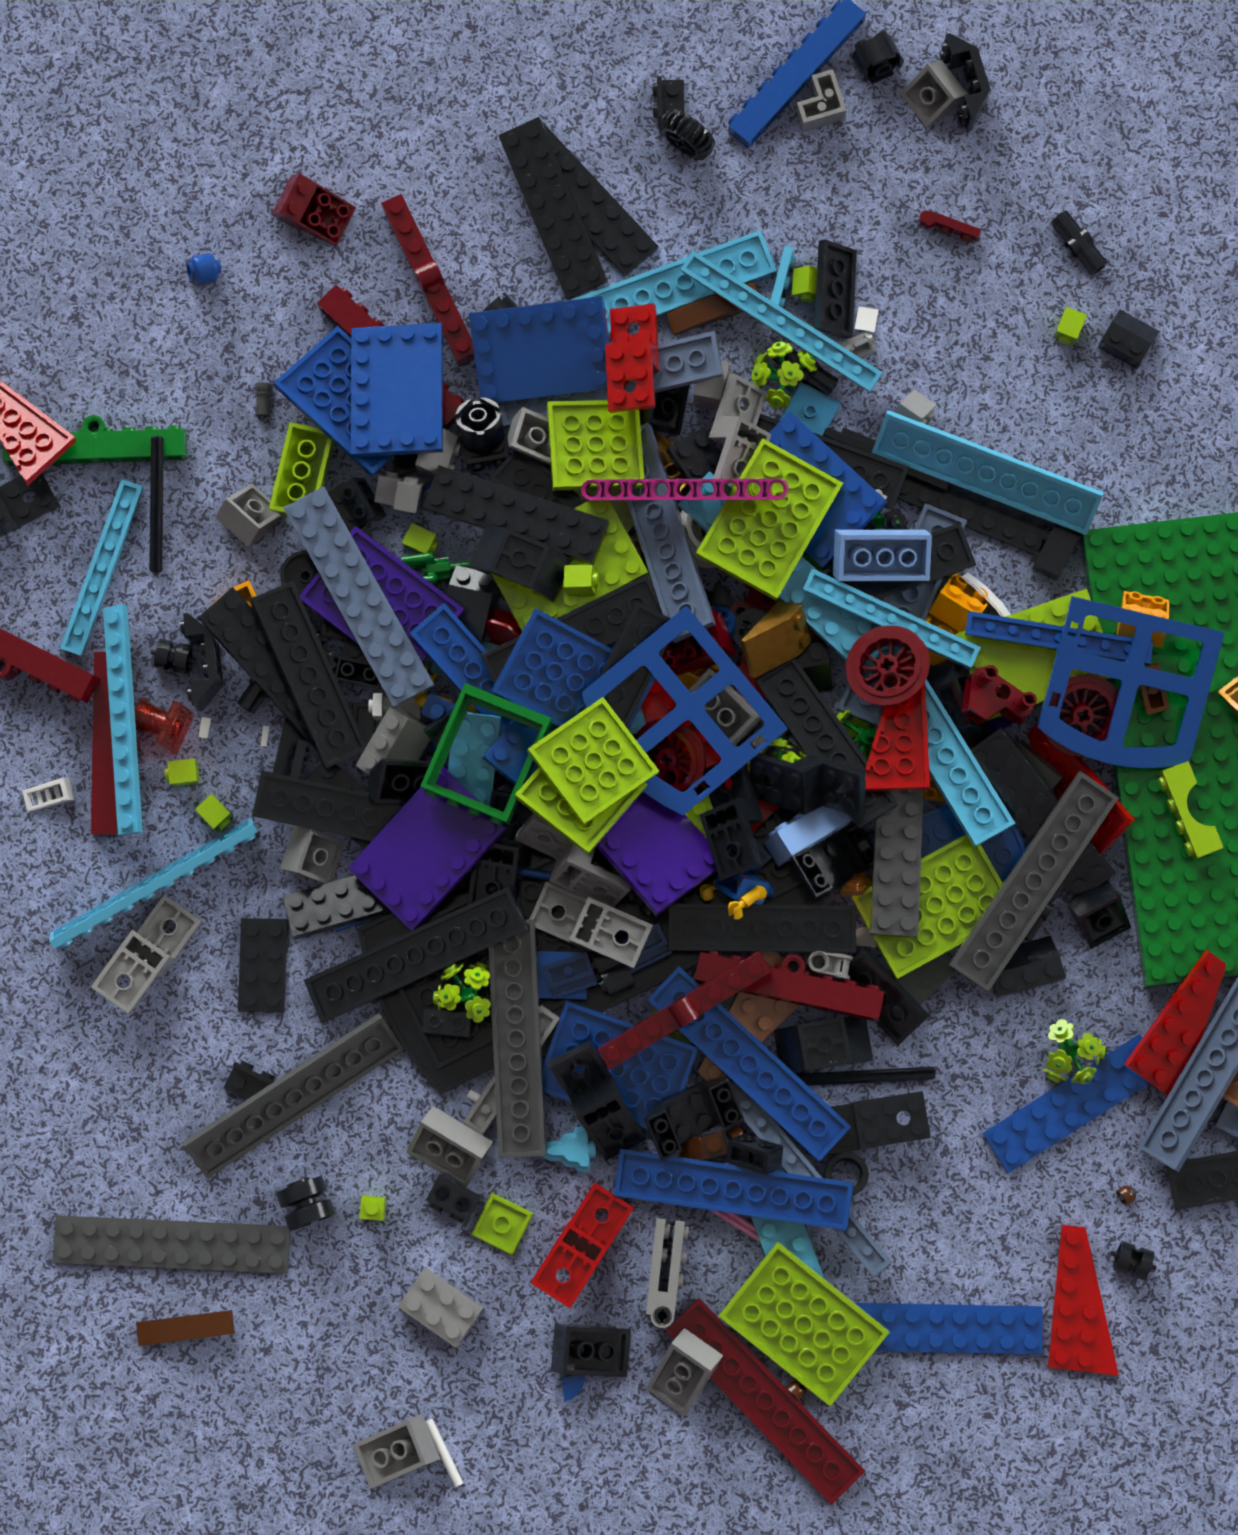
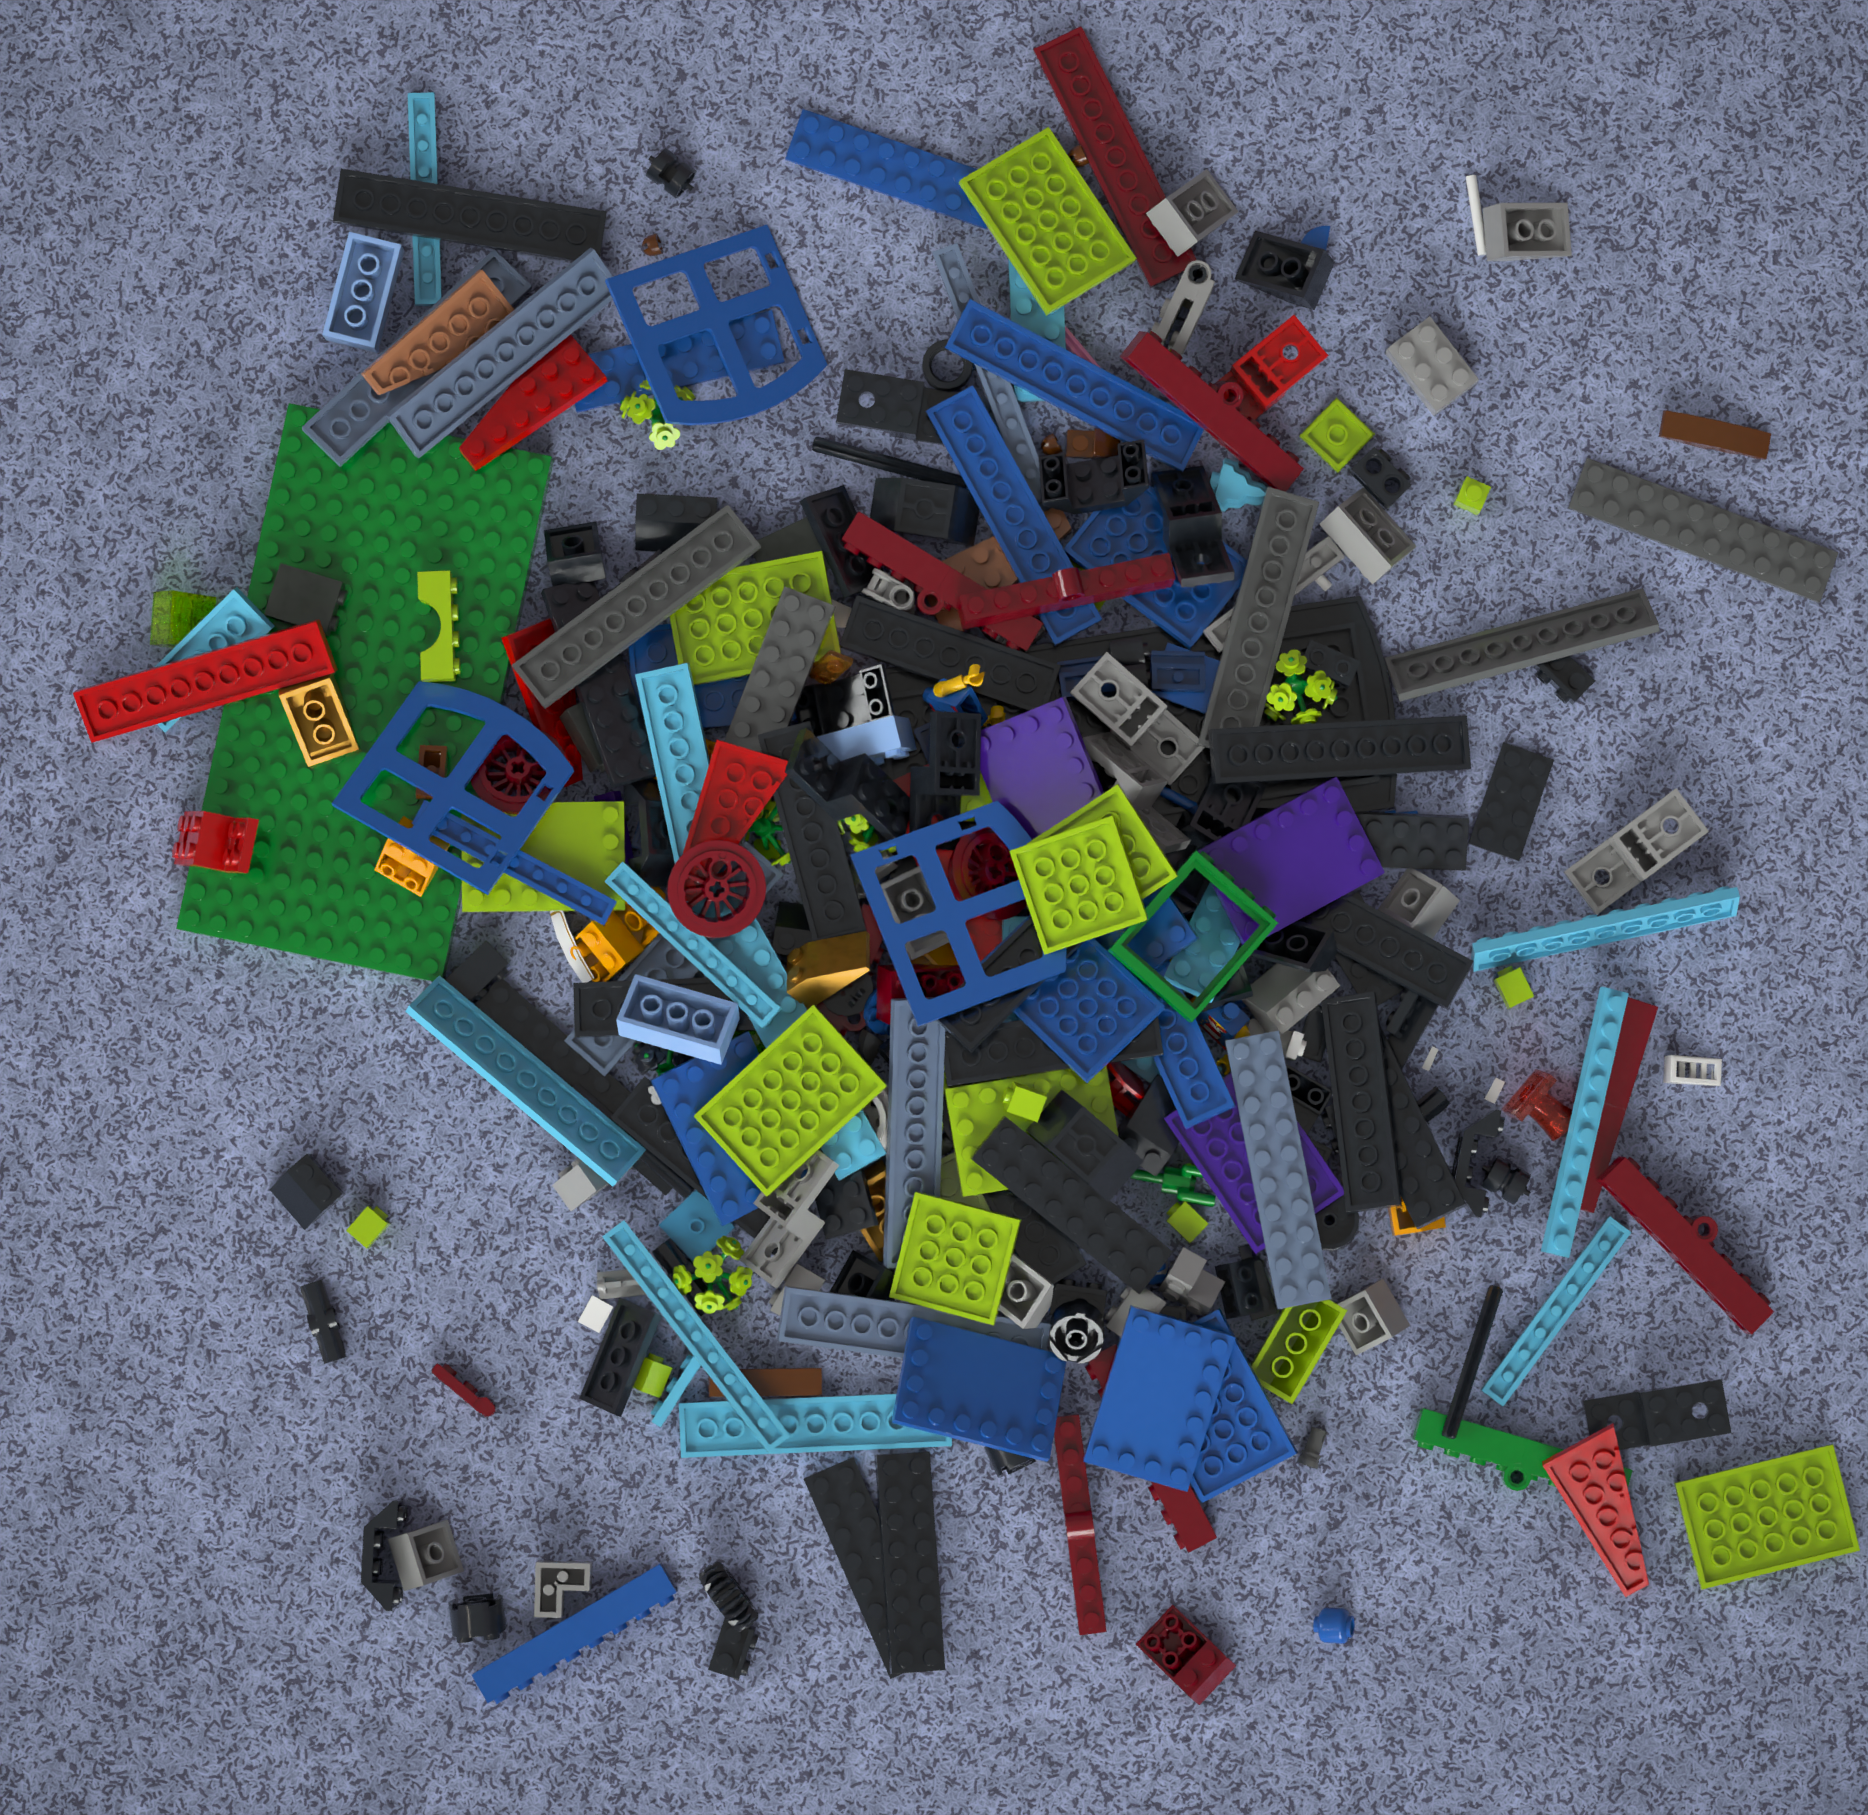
camera: 165 degrees left, 5 degrees up
(182, 772) = (1535, 1044): lime brick -> none
(303, 1196) = (1544, 531): black wheel -> none
(611, 1203) = (1210, 410): none -> dark red hinge
(632, 358) = (881, 1340): red bracket -> none
(673, 487) = (861, 1164): dark pink beam -> none
(754, 1154) = (1040, 414): black brick -> none
(982, 702) = (625, 817): dark red piece -> none
(1054, 1146) = (715, 318): none -> blue window
(1079, 1322) = (751, 129): red wing -> none

